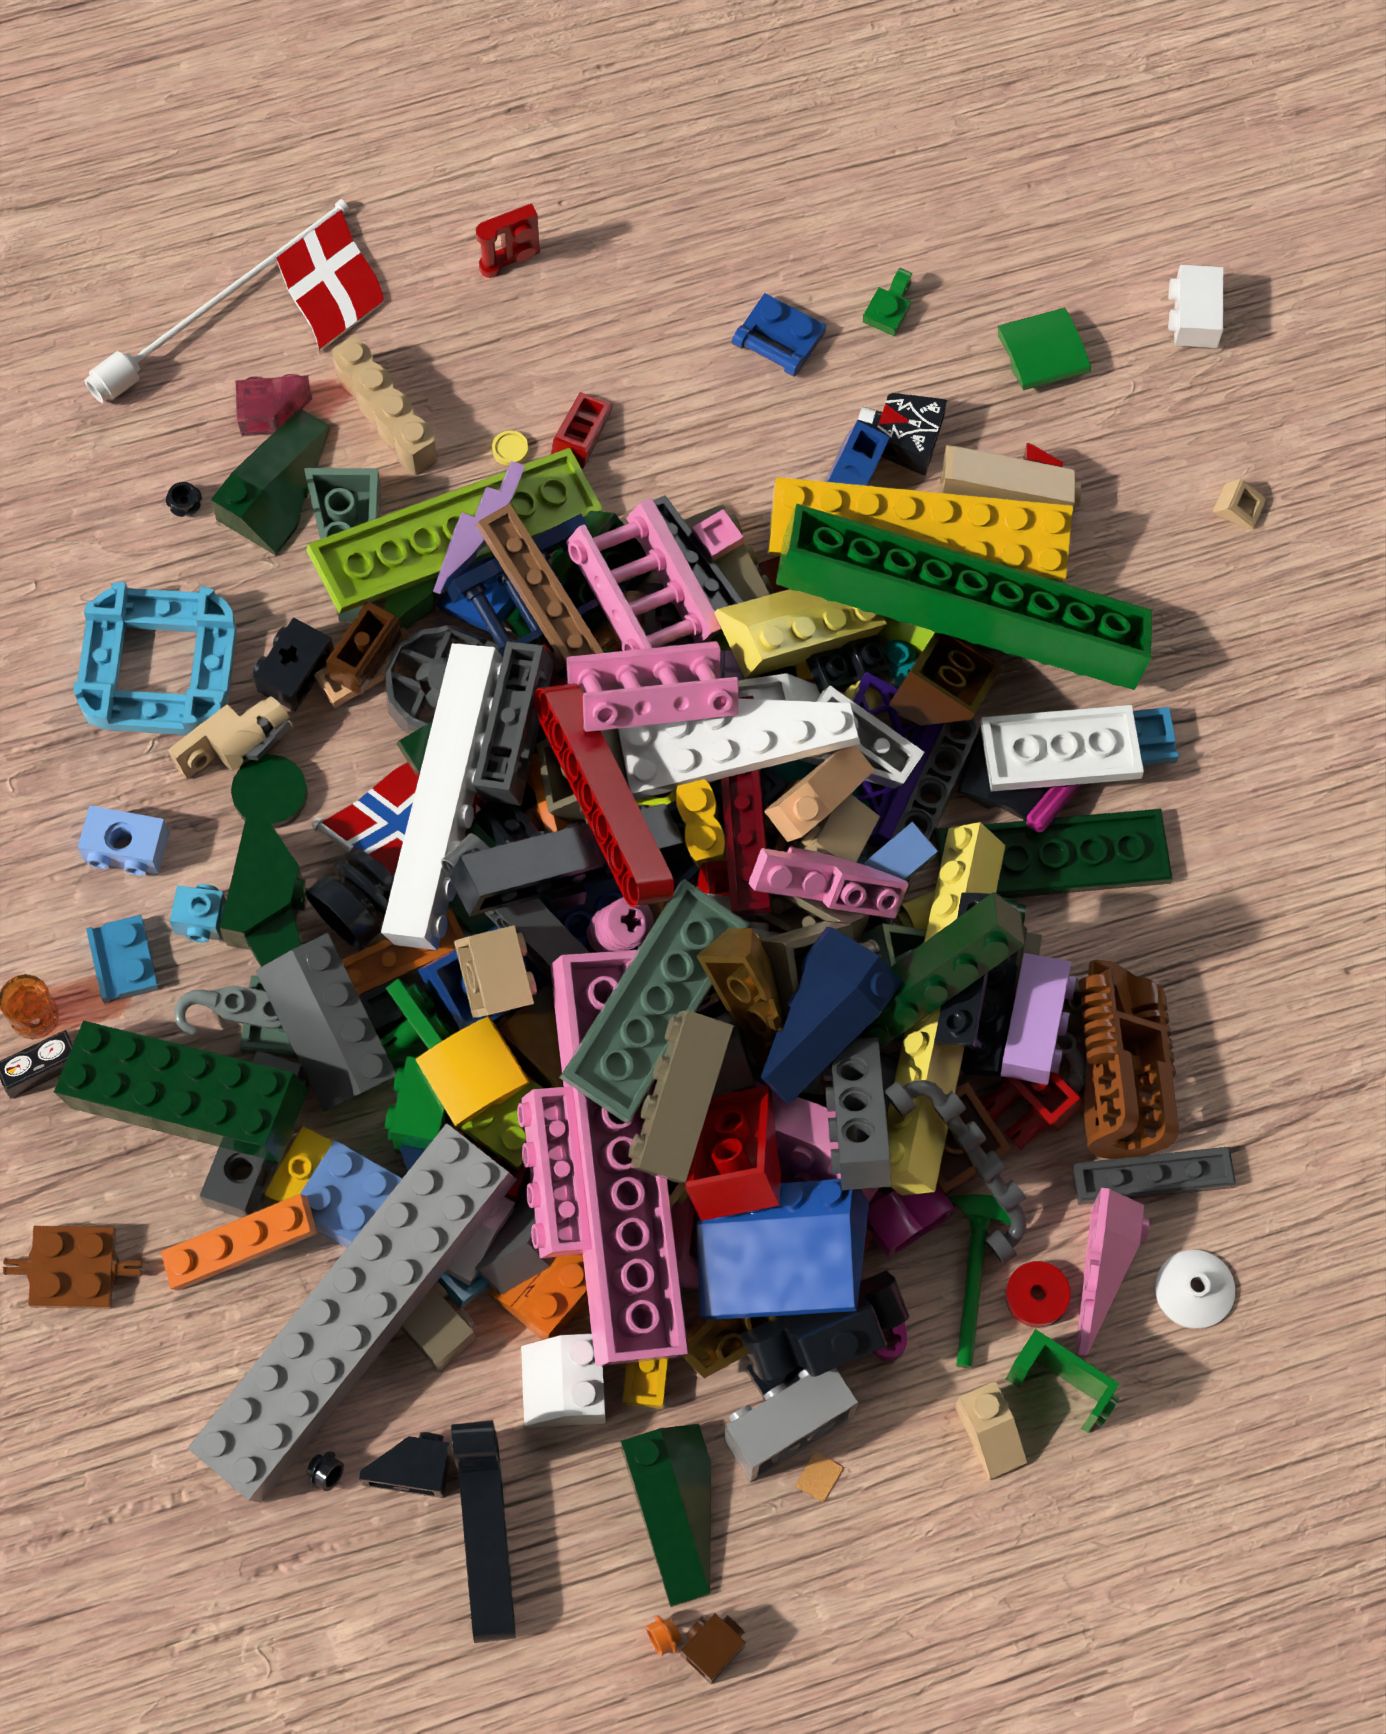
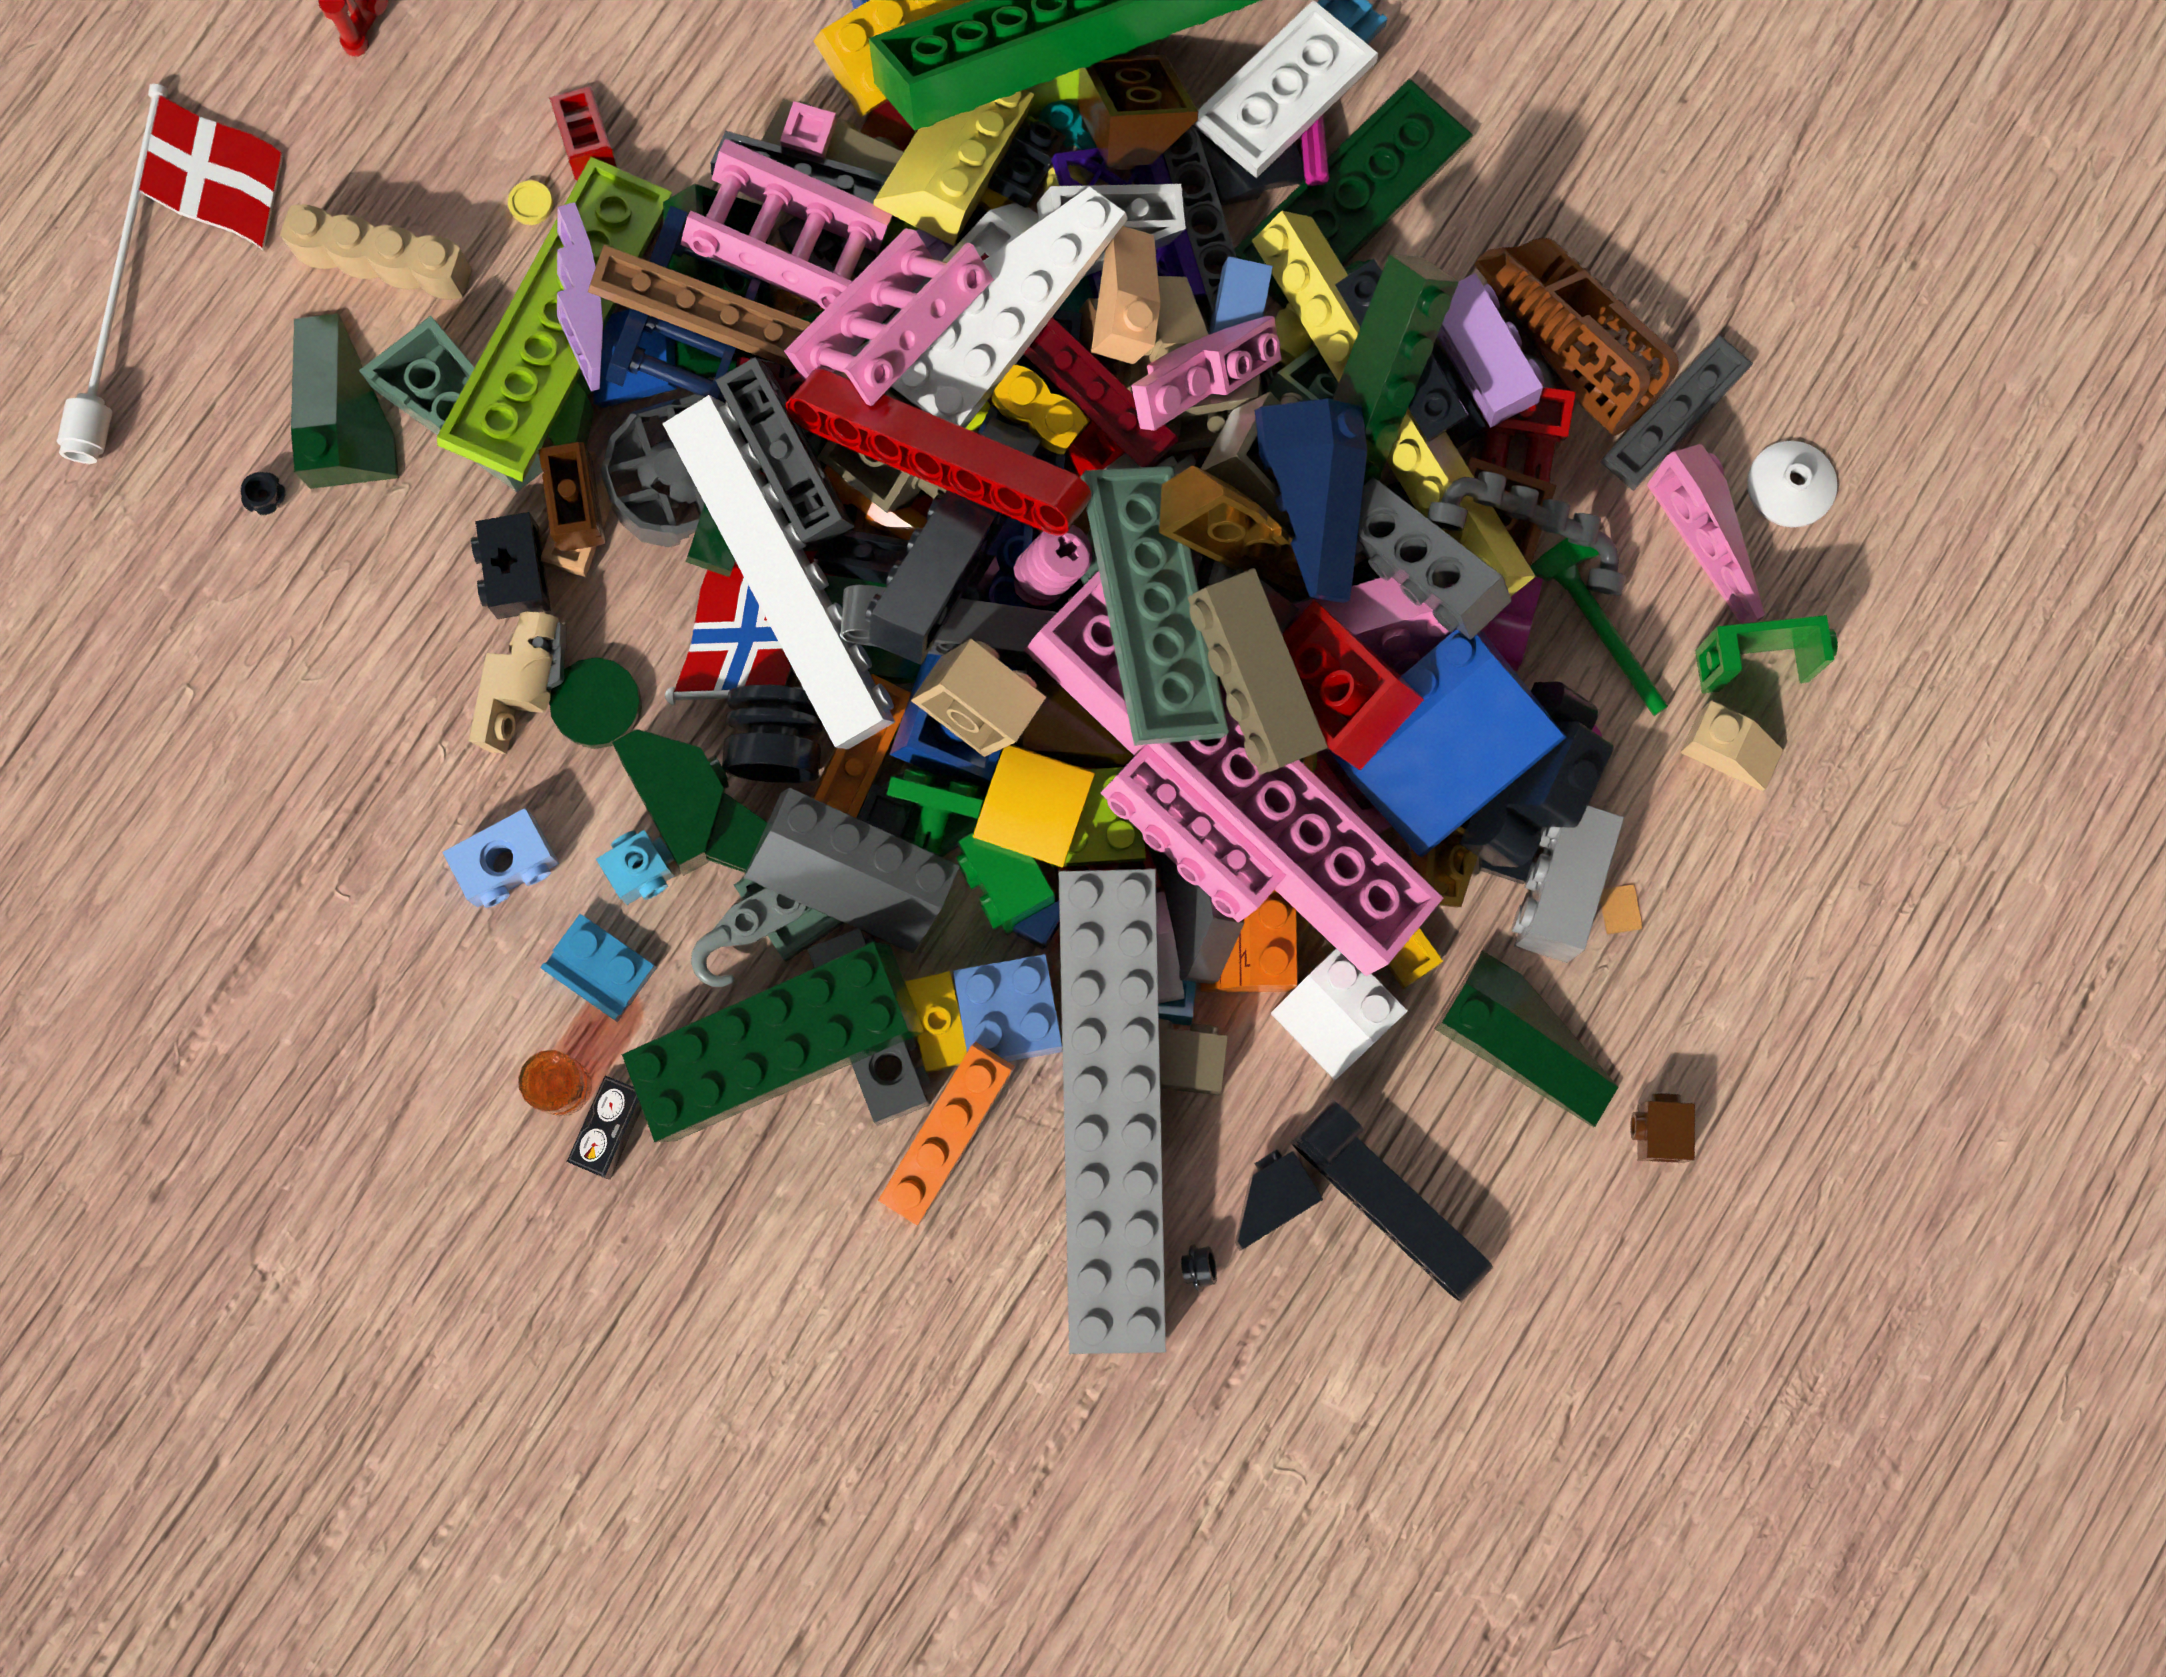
camera: 40 degrees left, 10 degrees up
(72, 1267) = (809, 1282): dark orange plate -> none
(155, 610) = (339, 614): medium azure plate -> none
(269, 402) = (261, 334): clear pink slope -> none
(663, 1635) = (1613, 1156): orange plate -> none
(1037, 1312) = (1677, 579): red piece -> none

